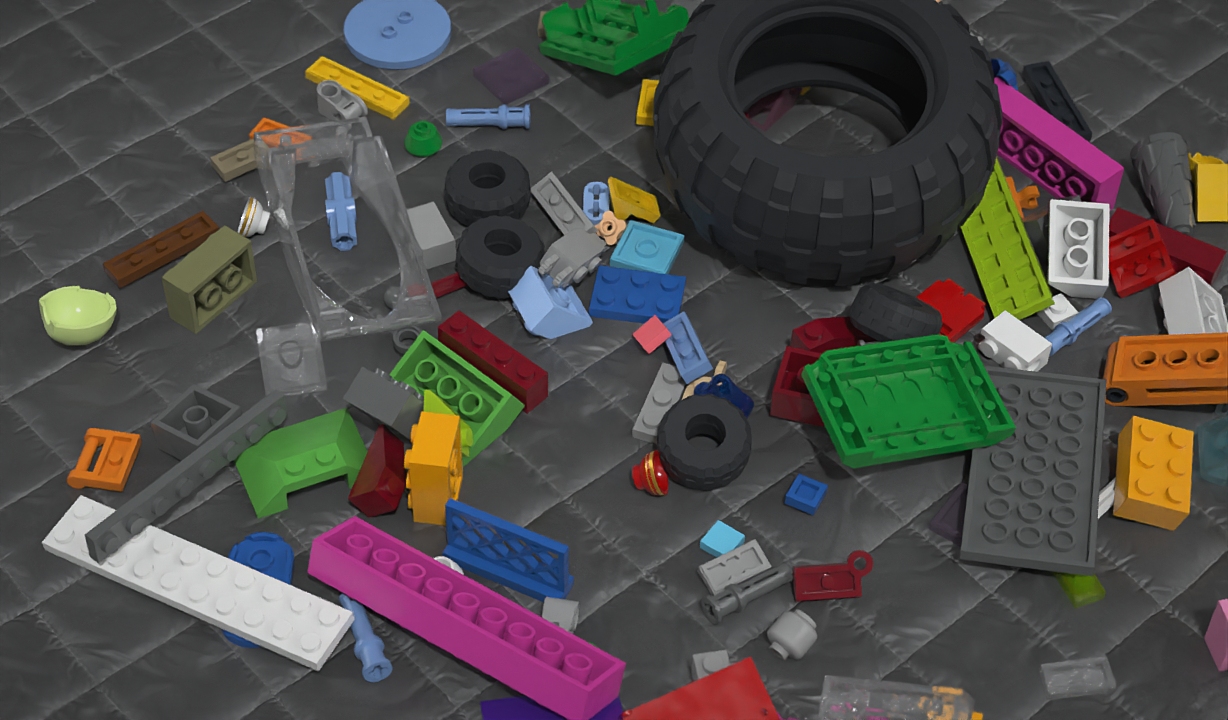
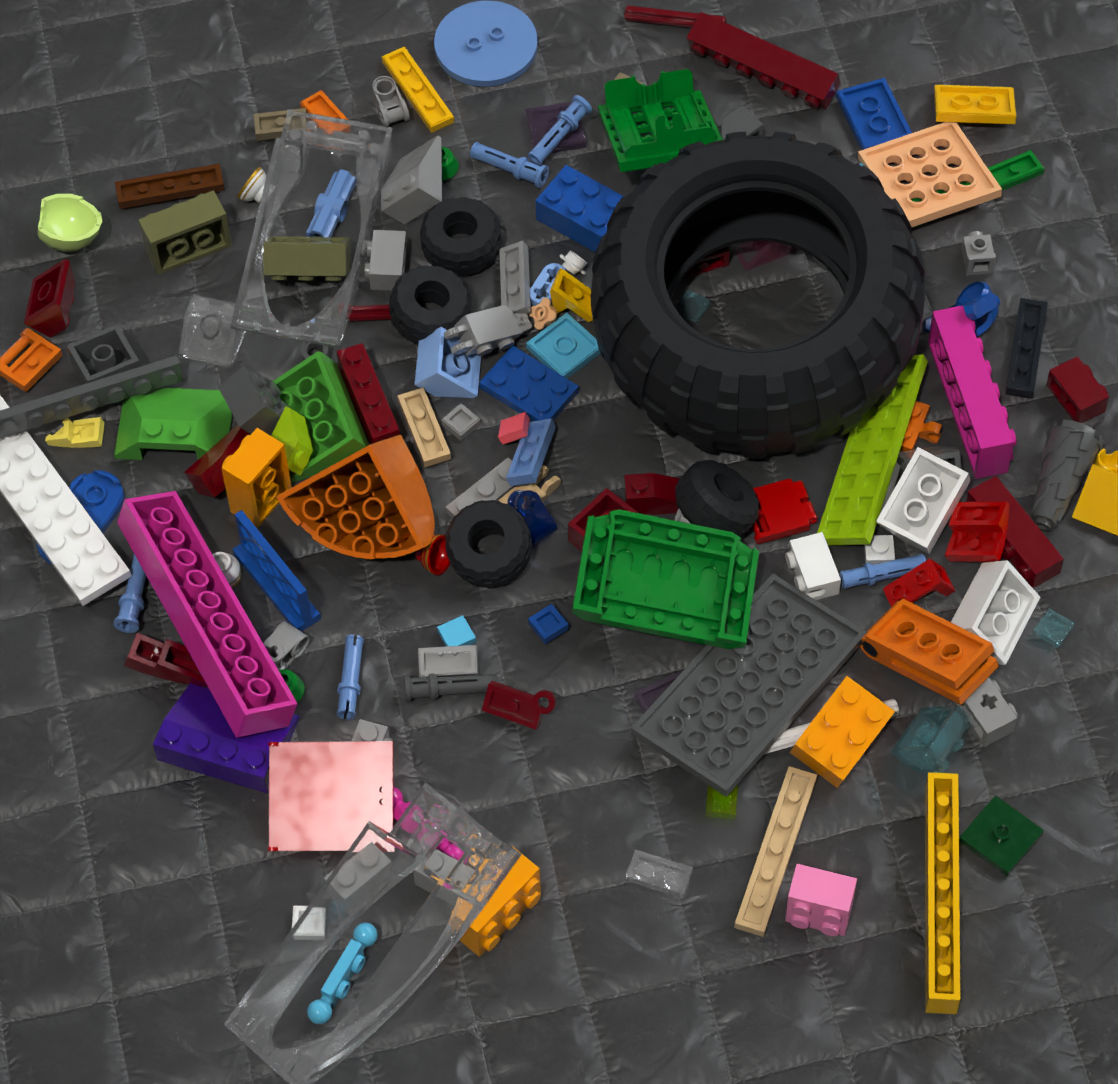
camera: 30 degrees right, 10 degrees up
(103, 389) = (51, 300): none -> dark red slope
(205, 509) = (78, 433): none -> light yellow slope
(354, 256) = (307, 257): none -> olive brick
(417, 157) = (414, 183): none -> light grey slope
(444, 688) = (163, 660): none -> dark red slope
(527, 54) = (567, 121): none -> medium blue pin
(560, 454) = (366, 503): none -> orange brick
(563, 367) = (424, 427): none -> tan plate
(588, 129) = (577, 207): none -> blue brick
(593, 350) = (461, 422): none -> light grey tile
(606, 172) = (573, 262): none -> white plate
(651, 635) = (349, 687): none -> medium blue pin
(792, 635) = (455, 737): light grey head -> none
(1115, 323) = (919, 582): none -> red bracket
(1125, 119) = (1077, 390): none -> dark red brick
(1168, 610) = (775, 851): none -> tan plate

